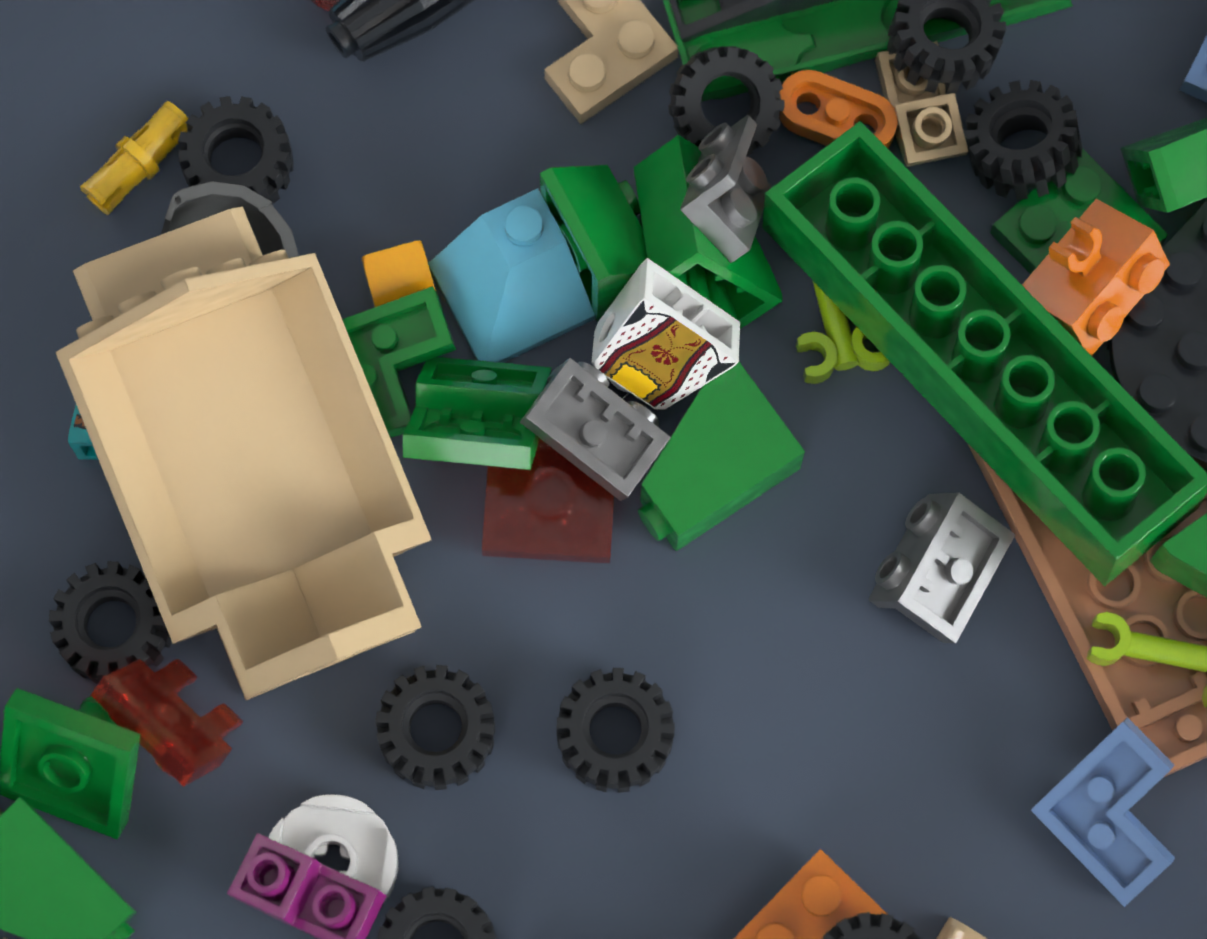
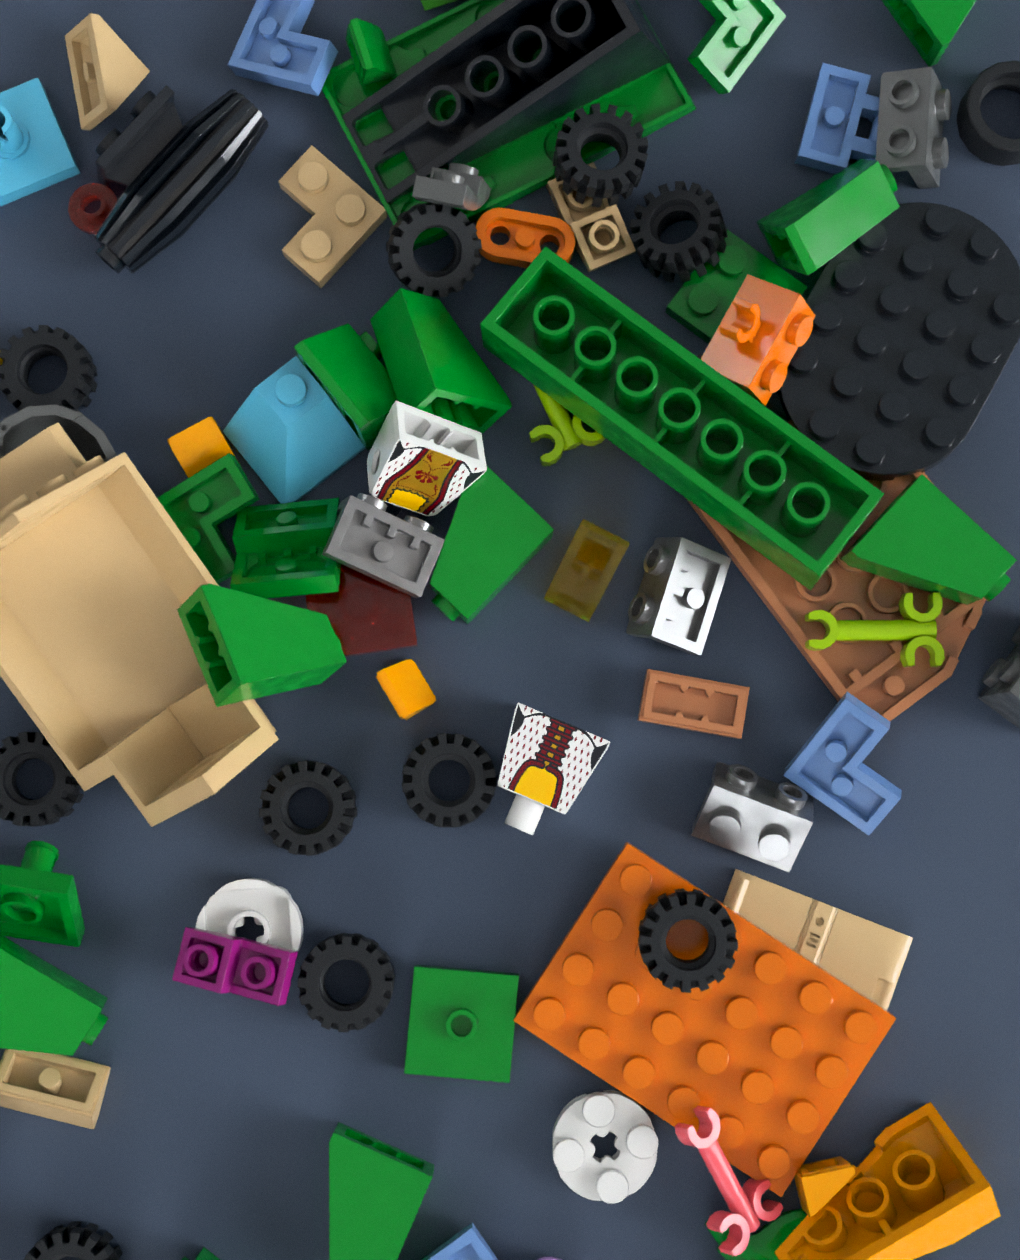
camera: 15 degrees left, 10 degrees up
(169, 729) = (95, 860): clear red plate -> none
(423, 508) = (257, 644): none -> green slope
(584, 610) = (406, 688): none -> light orange slope
(727, 189) = (449, 327): flat silver bracket -> none
(738, 735) = (545, 765): none -> torso
(764, 33) = (454, 187): none -> dark grey slope
(835, 510) = (586, 570): none -> clear yellow slope
(935, 700) = (693, 704): none -> nougat plate
(985, 853) = (754, 816): none -> flat silver bracket

